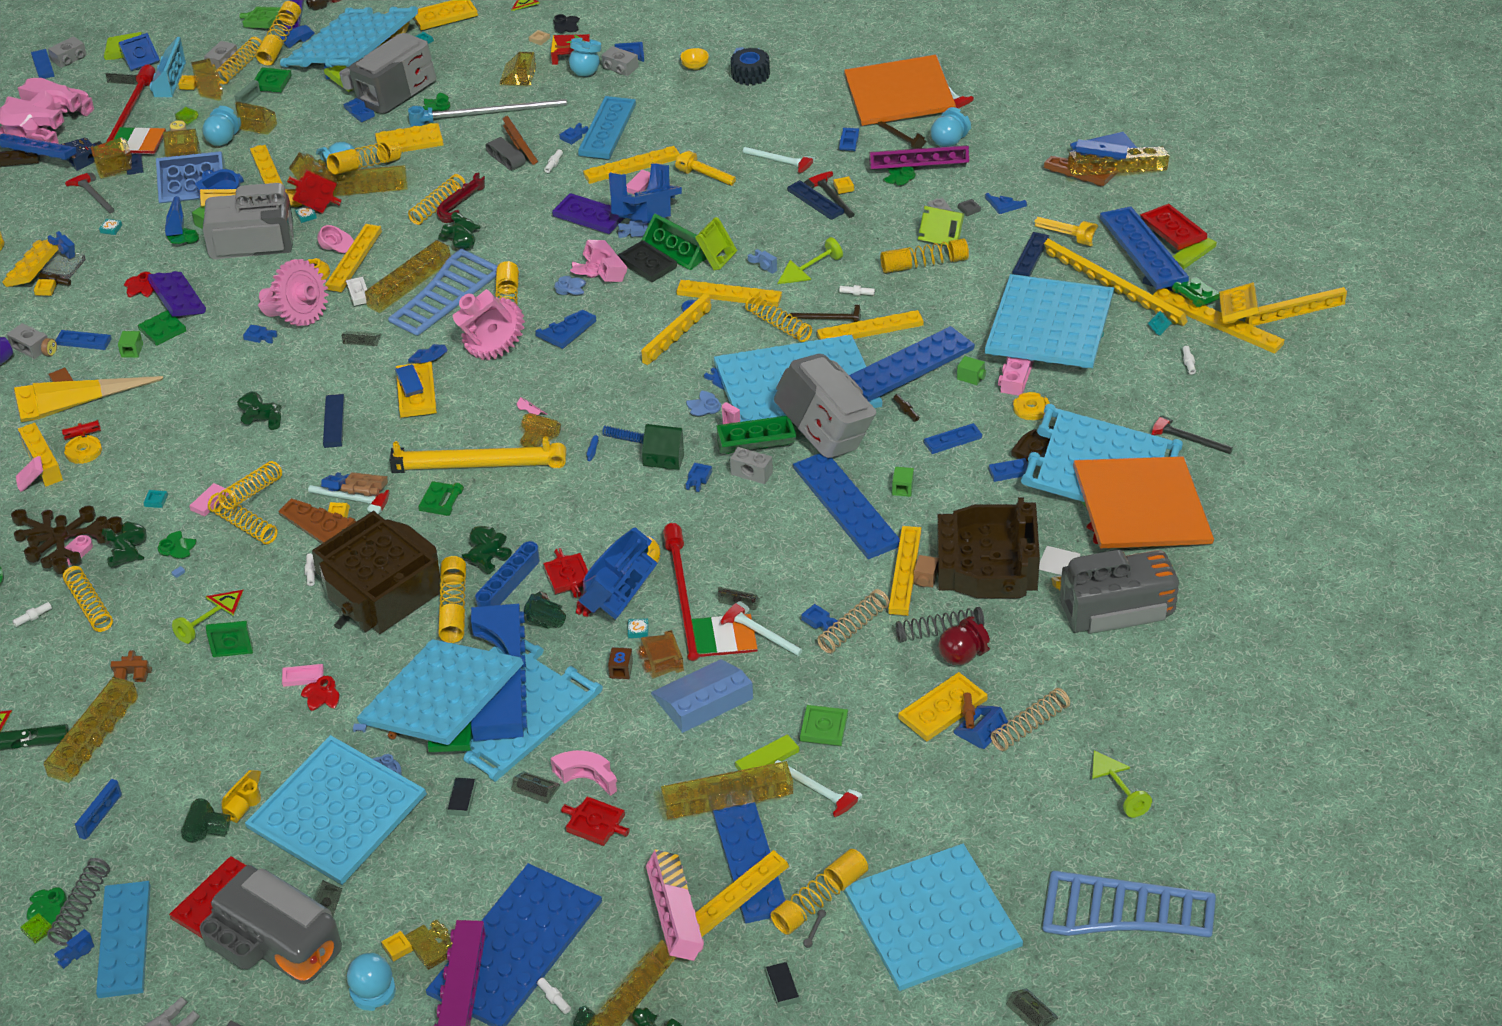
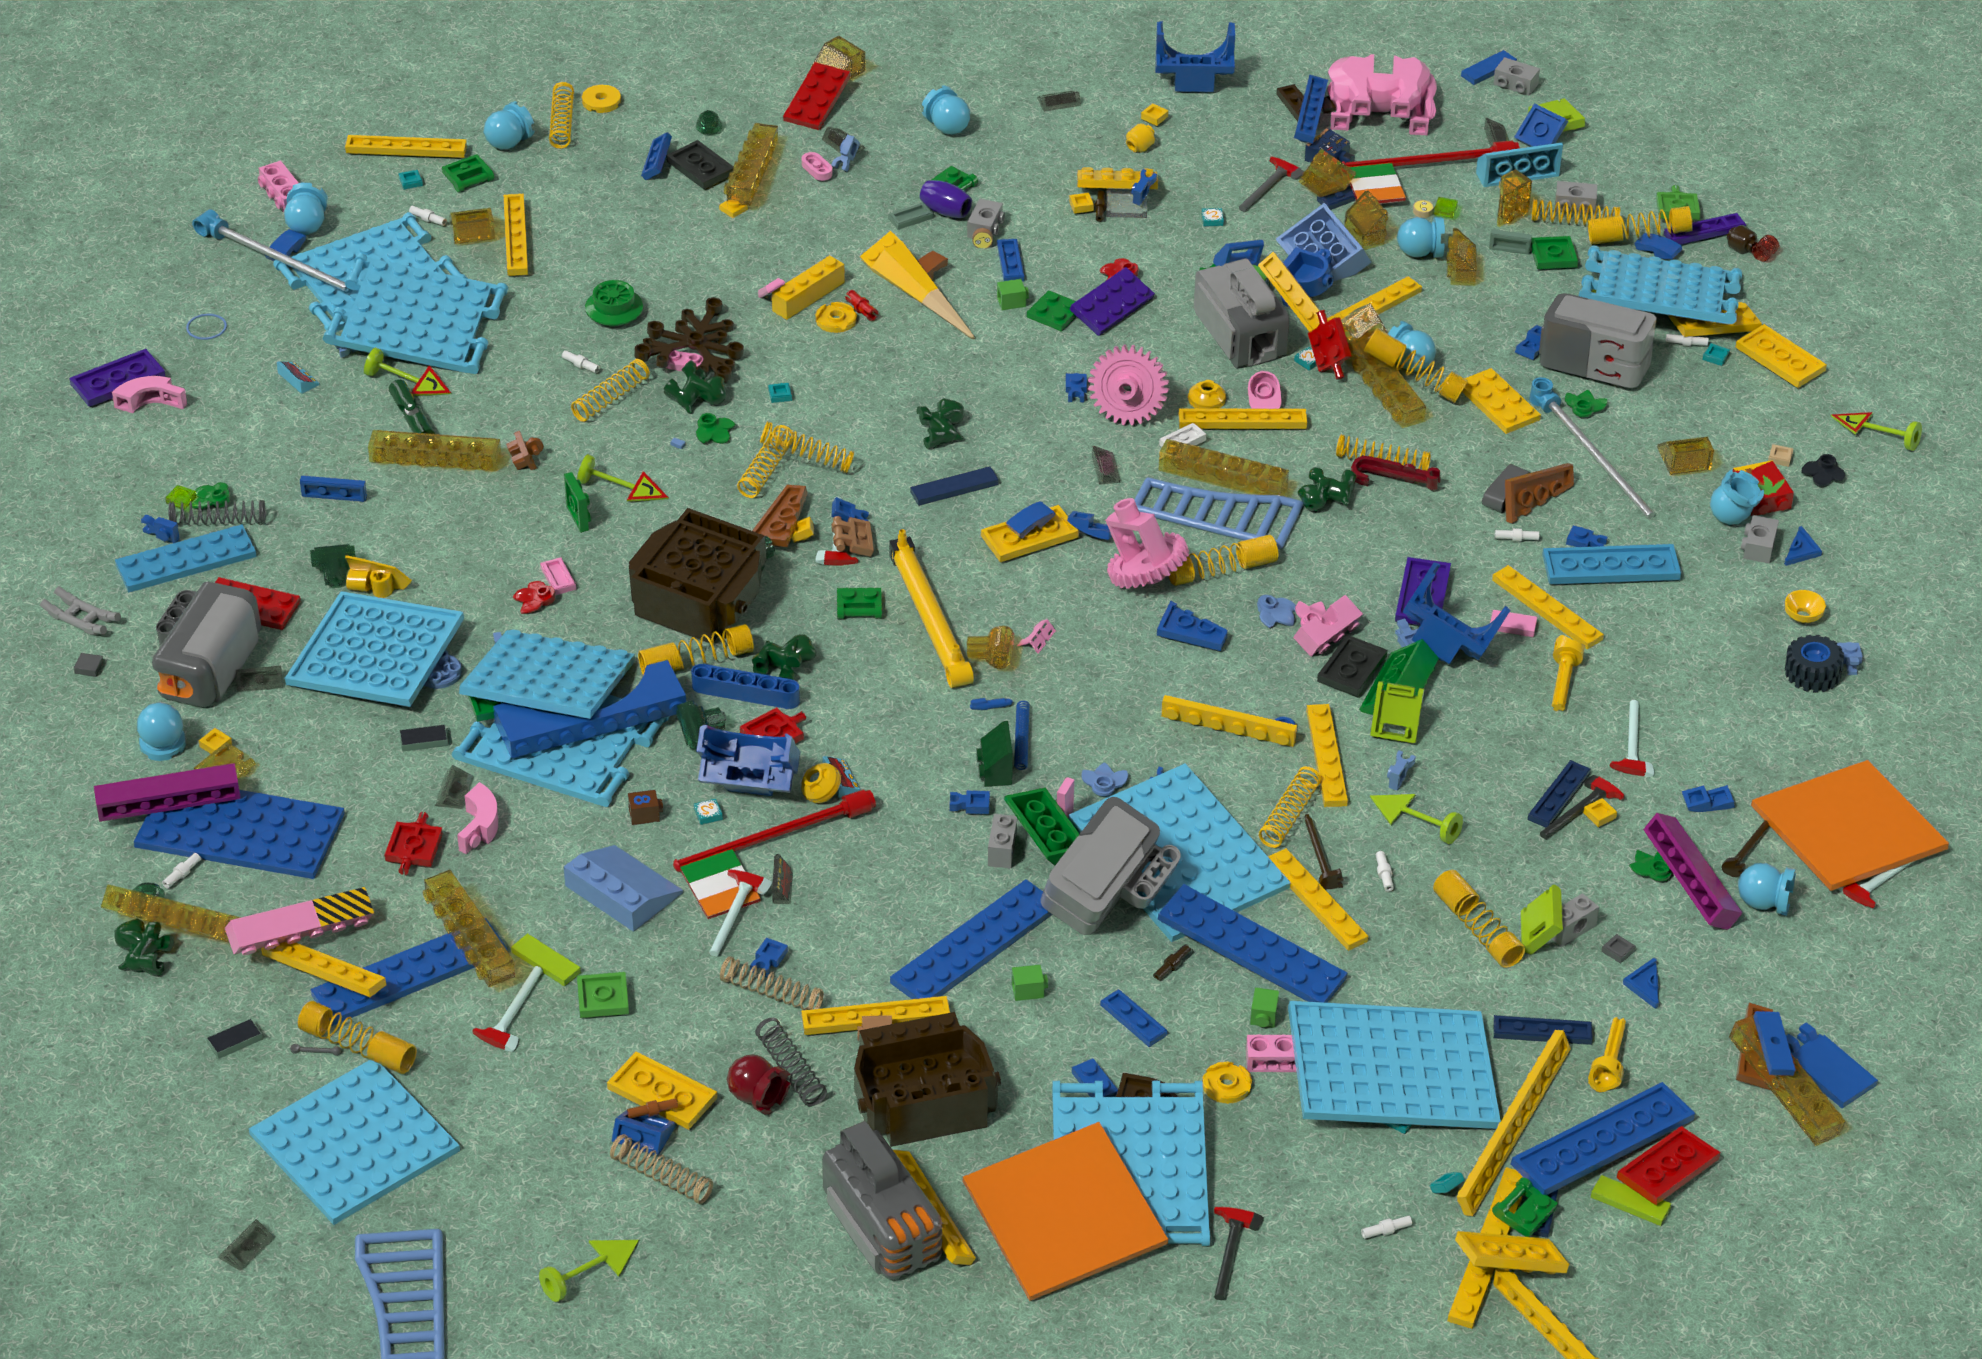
camera: 70 degrees right, 0 degrees up
(200, 504) = (801, 428): bright pink tile -> none
(661, 654) = (667, 837): clear orange hips -> none
(1055, 559) = (948, 1158): white sticker -> none

